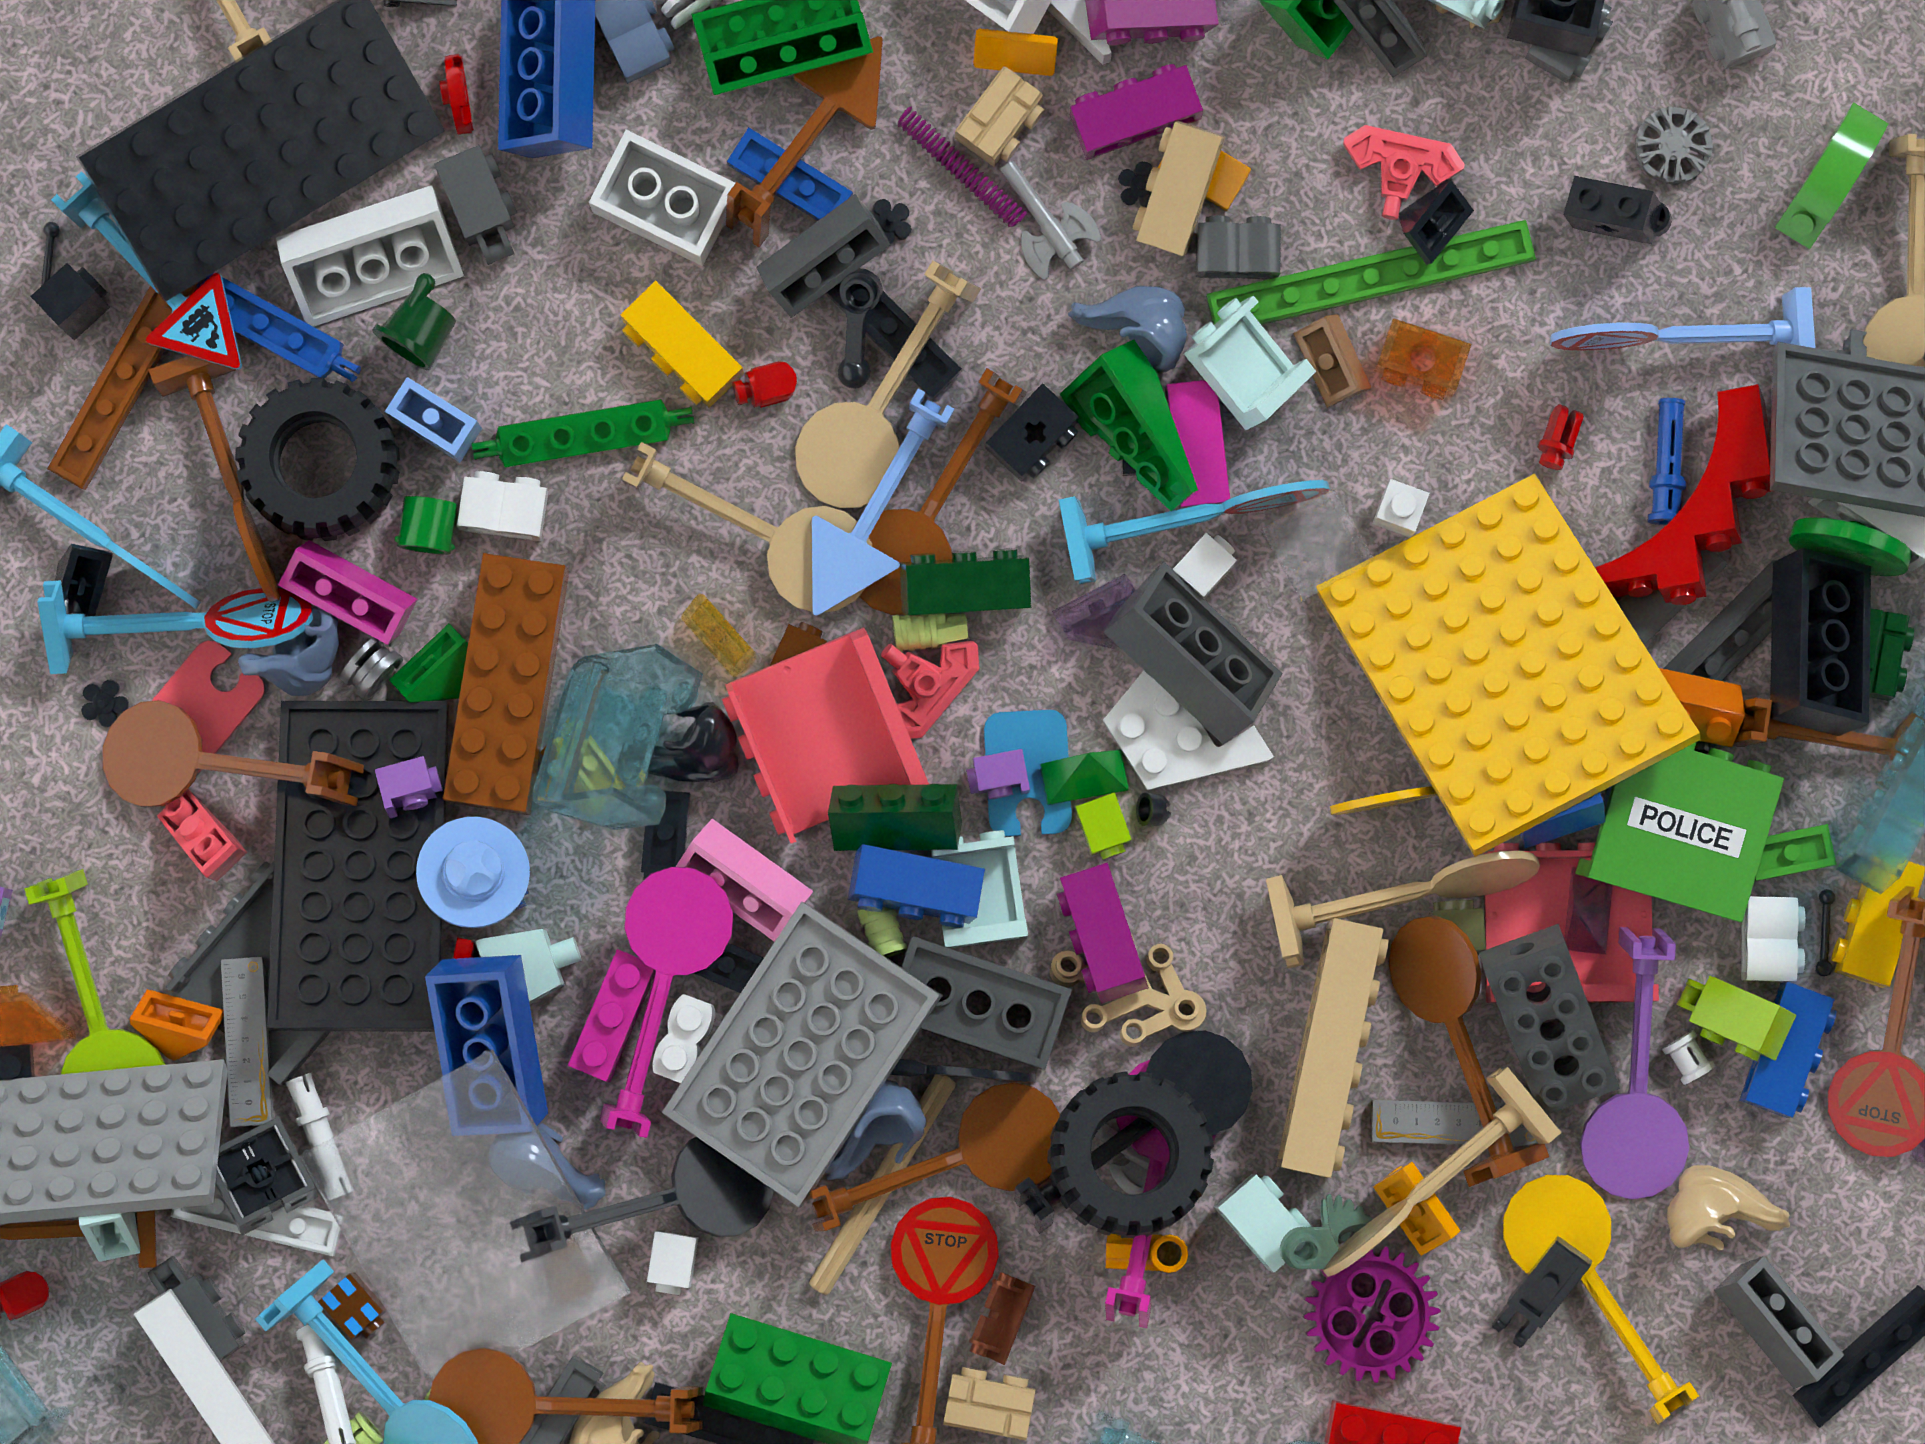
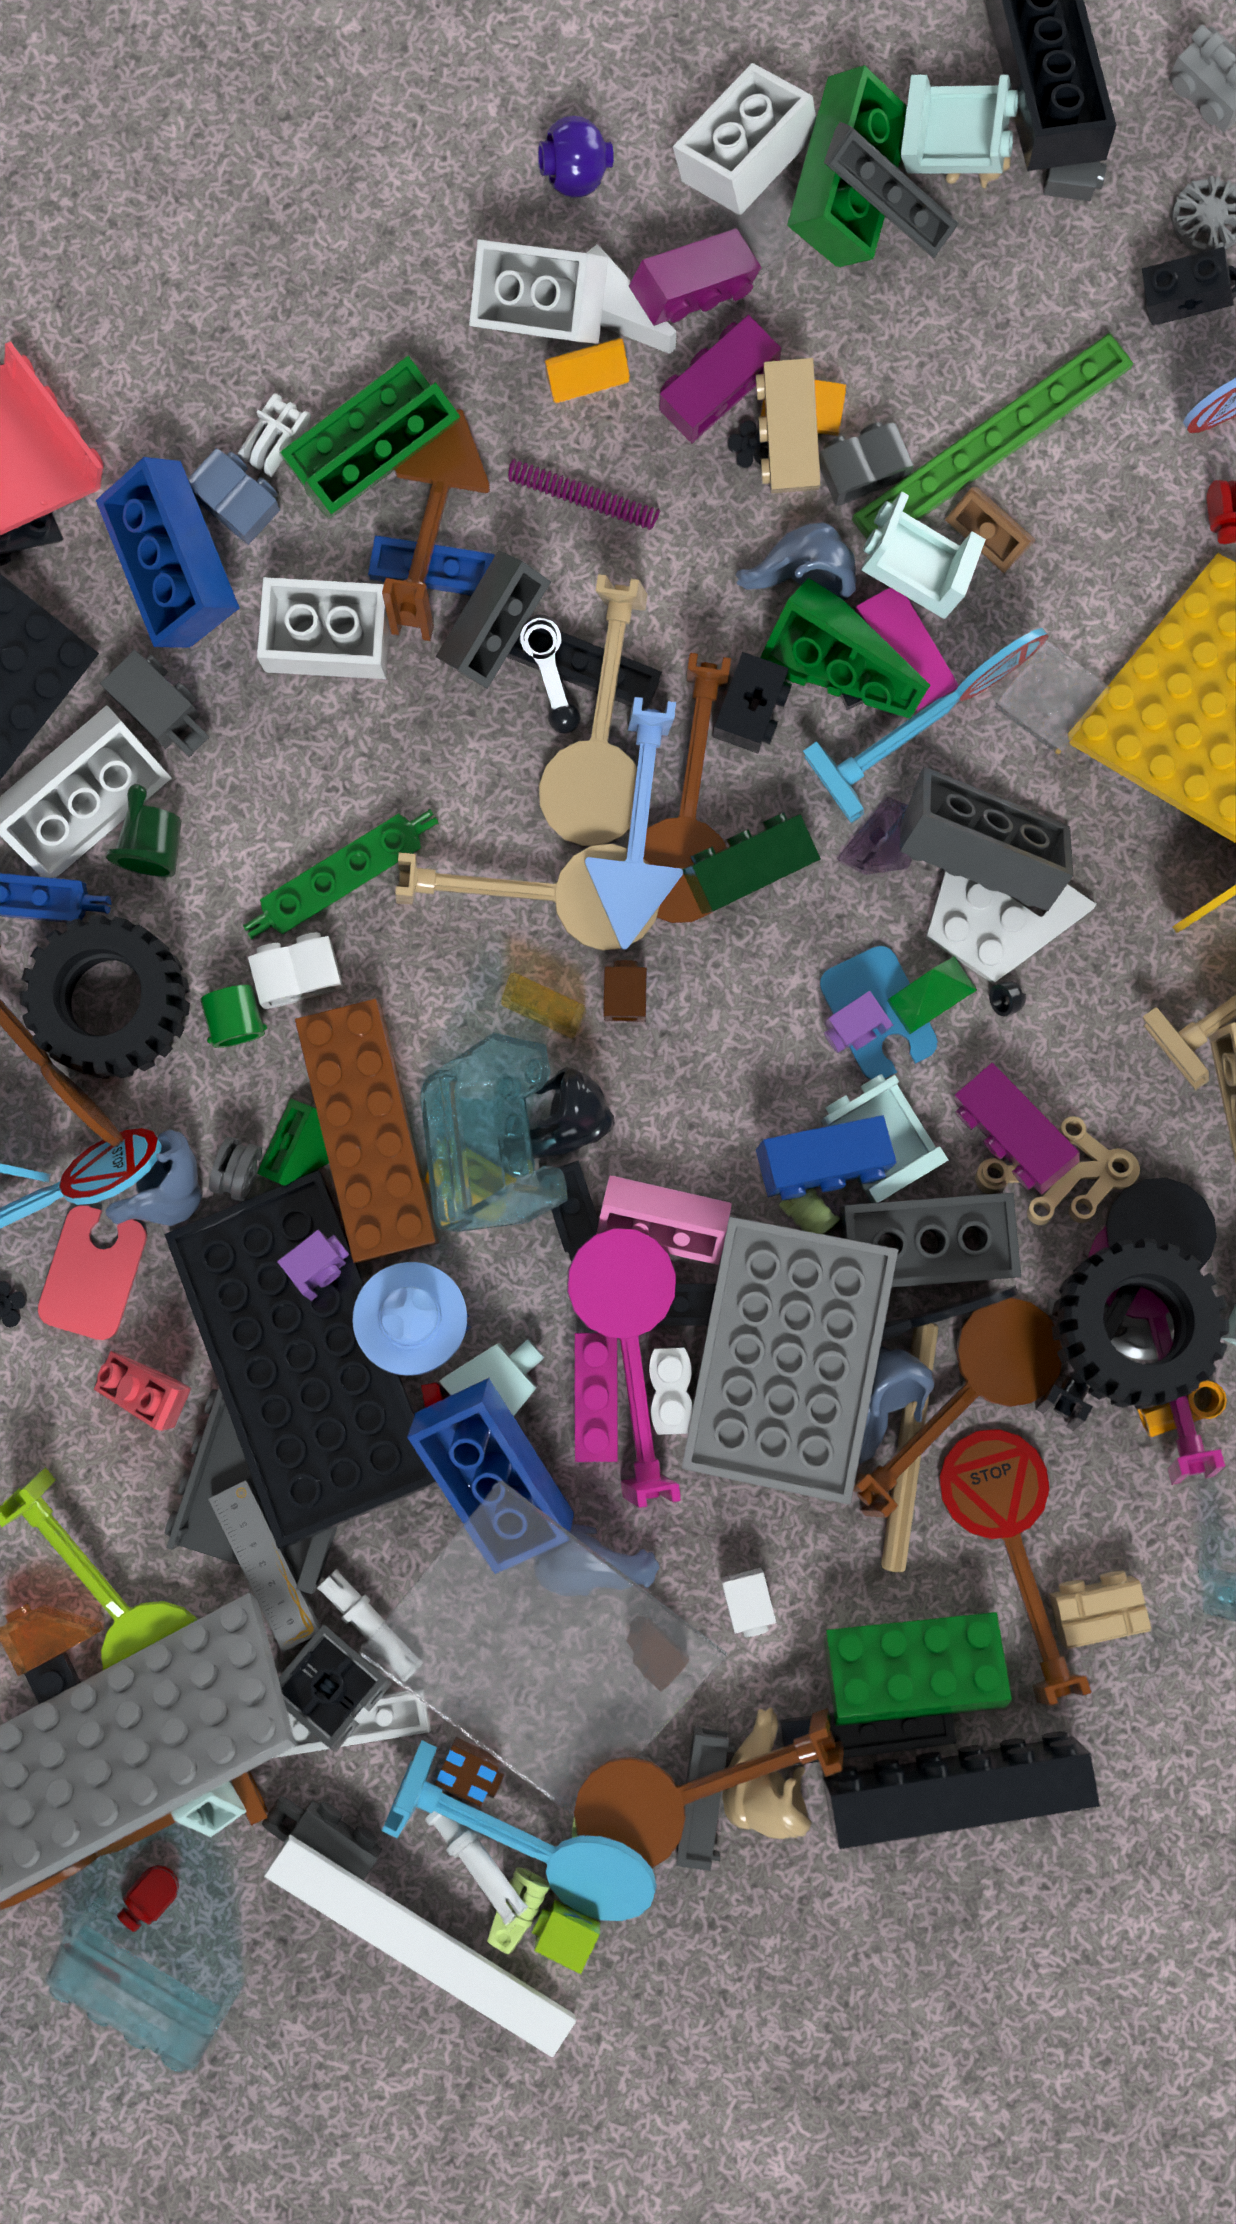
camera: 20 degrees left, 0 degrees up
(157, 753) = (69, 1331): dark orange piece -> none
(175, 1023) = (190, 1576): orange slope -> none
(347, 592) = (183, 1108): dark pink brick -> none
(433, 419) = (197, 916): light blue brick -> none
(455, 92) = (93, 615): red plate -> none
(680, 345) = (396, 756): yellow brick -> none
(705, 1187) = (754, 1522): black piece -> none
(766, 385) = (490, 760): red arm -> none
(821, 726) = (680, 1052): coral panel -> none
(892, 221) = (542, 564): black plant -> none
(895, 817) = (779, 1102): dark green brick -> none
(928, 630) = (732, 921): yellowish green hinge -> none
(931, 685) = (755, 970): coral piece -> none
(1000, 116) = (598, 433): tan brick -> none
(1008, 1305) = (1076, 1524): copper hinge -> none
(1057, 236) = (696, 520): light grey piece -> none
(1103, 826) = (971, 1031): lime brick -> none
(1206, 564) = (961, 753): white brick -> none
(1400, 508) = (1114, 631): white brick -> none
(1401, 162) = (976, 326): coral piece -> none
(1435, 220) = (1028, 364): black slope -> none
(1445, 352) = (1092, 478): clear orange brick -> none

